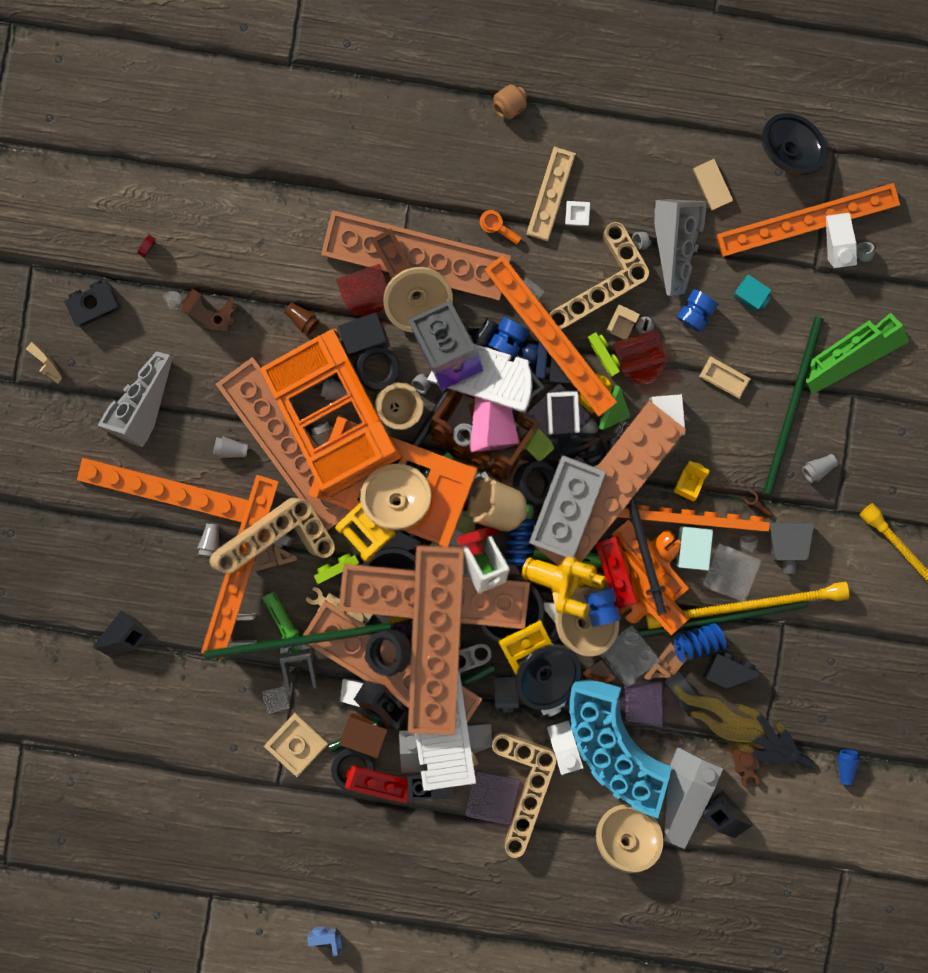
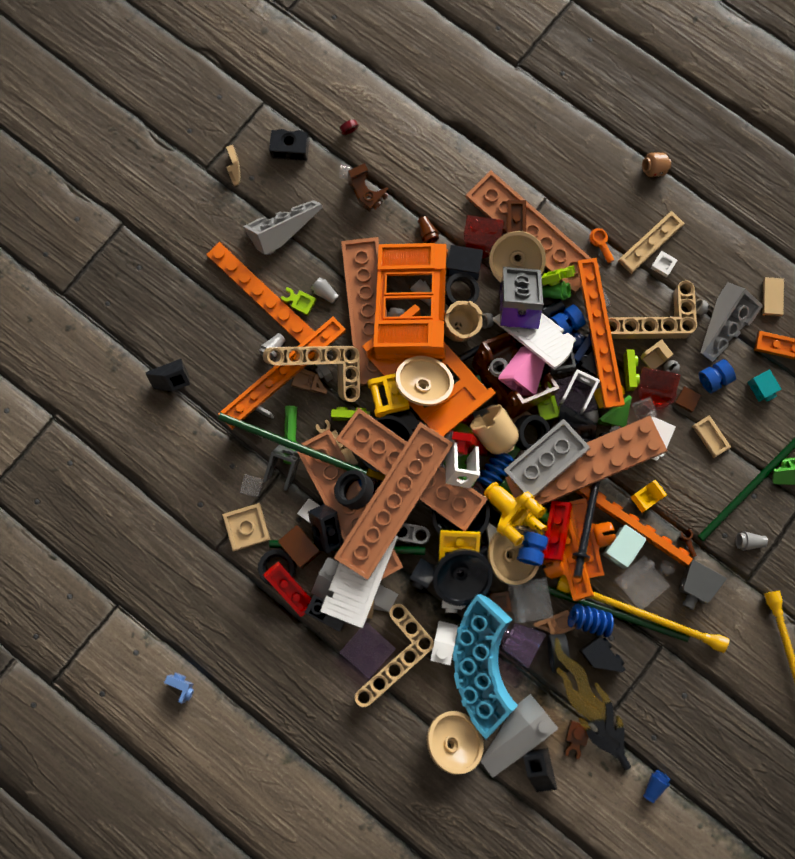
camera: 35 degrees right, 10 degrees down
(212, 475) = (301, 302): none -> lime plate
(468, 297) = (554, 277): none -> lime plate
(480, 309) = (558, 291): none -> bright green cone
(640, 389) = (644, 408): none -> clear tile
(679, 351) = (687, 399): none -> reddish brown tile

